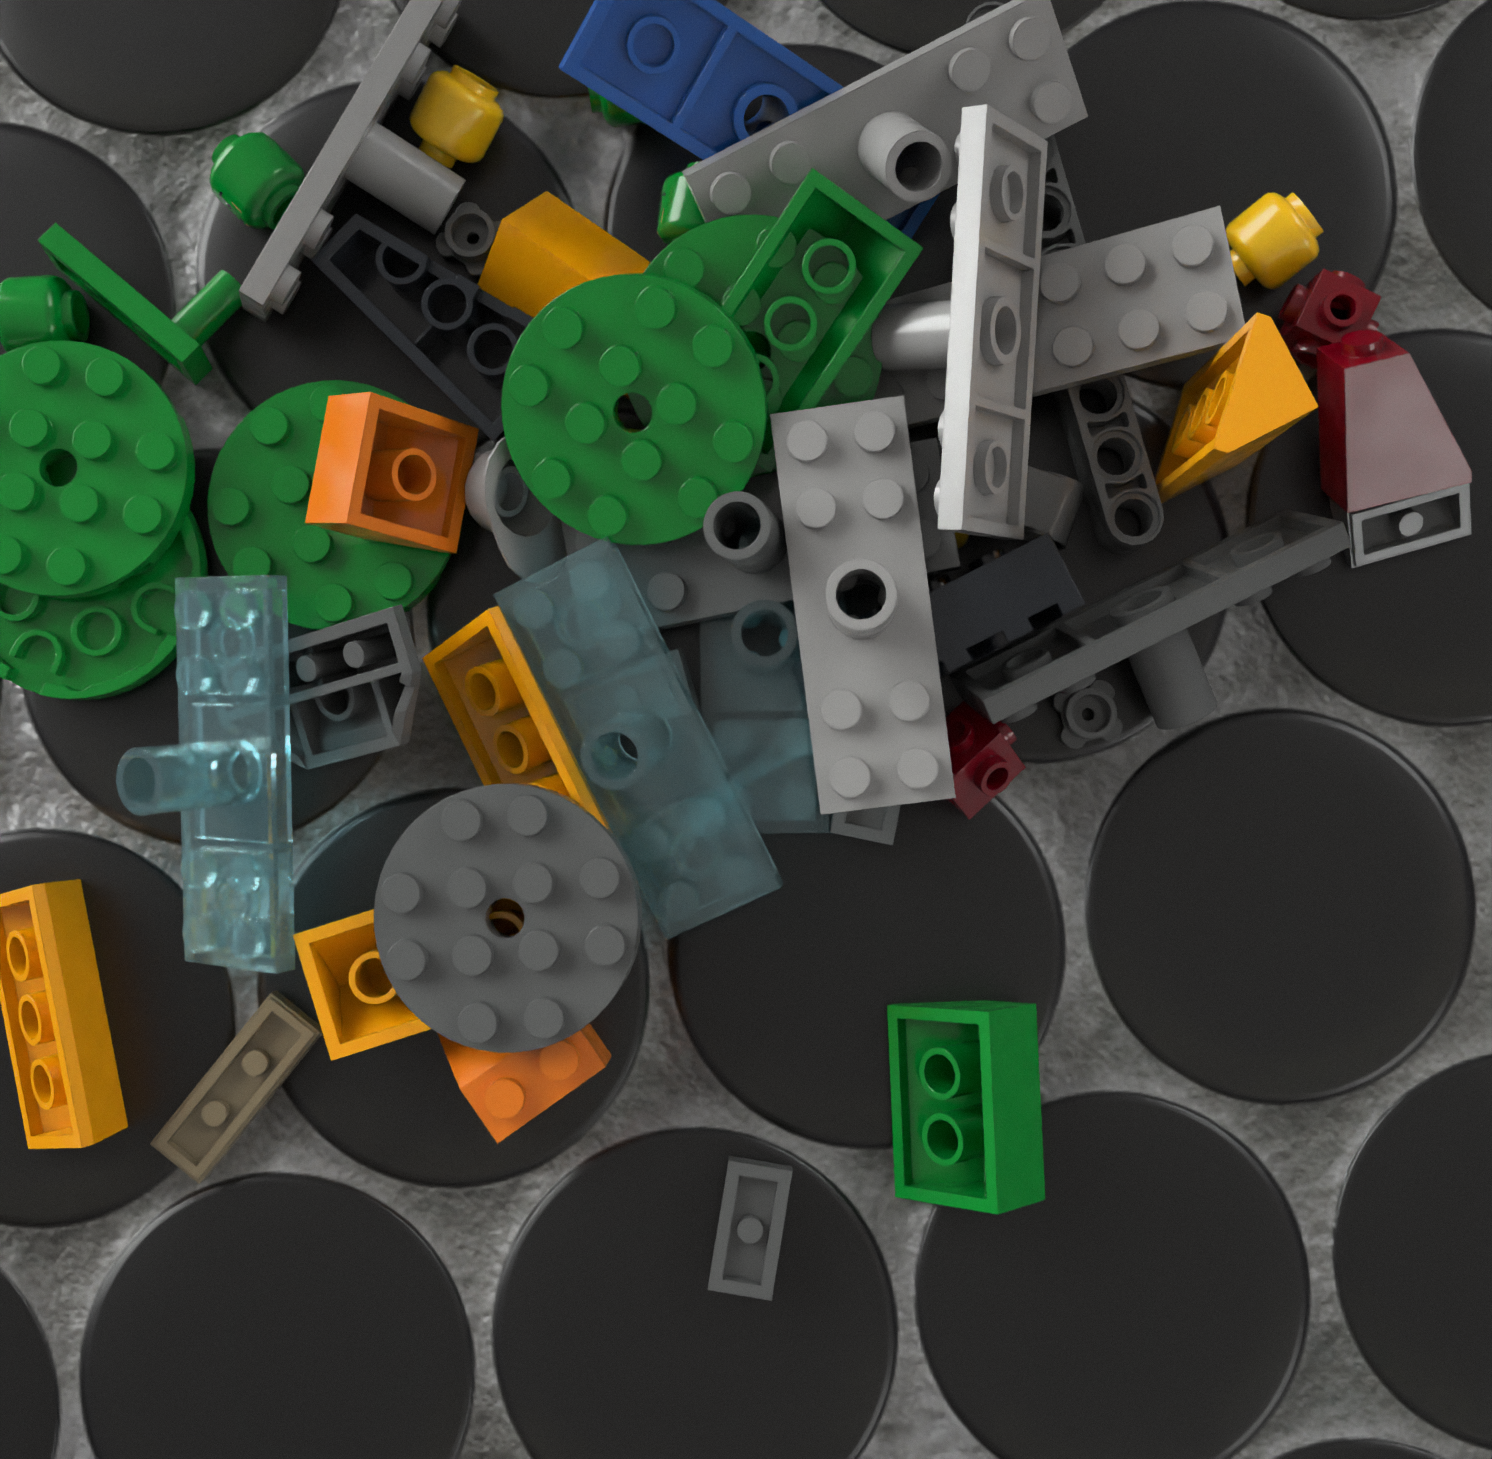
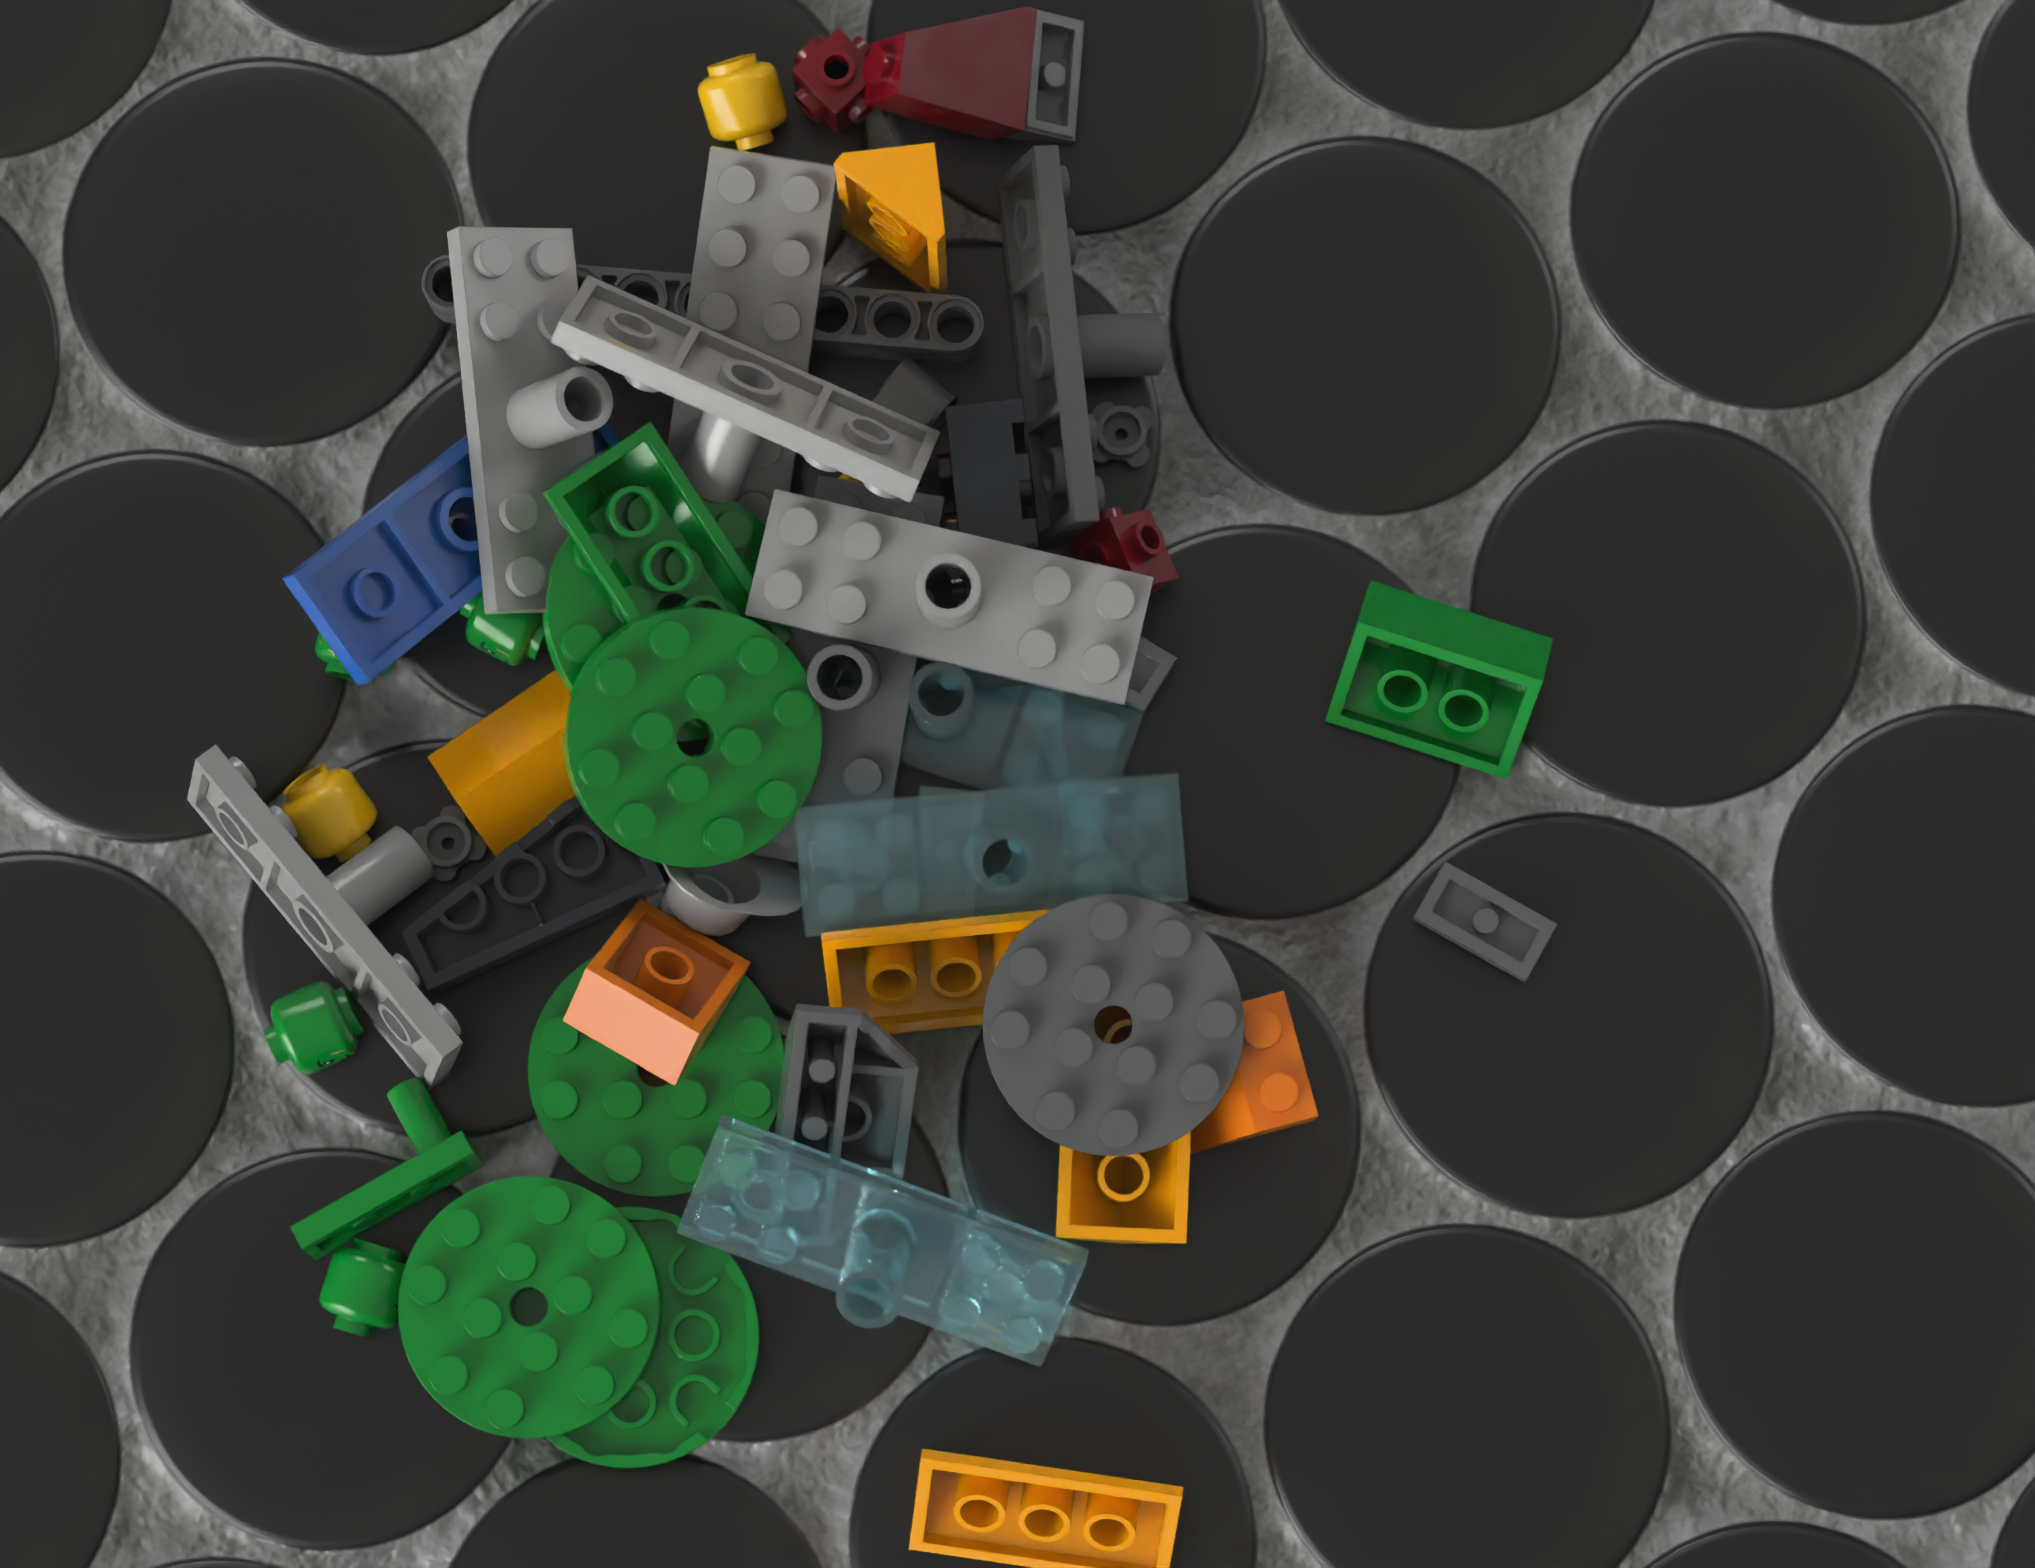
camera: 75 degrees left, 5 degrees down
(237, 1087) = (1179, 1361): dark tan tile -> none

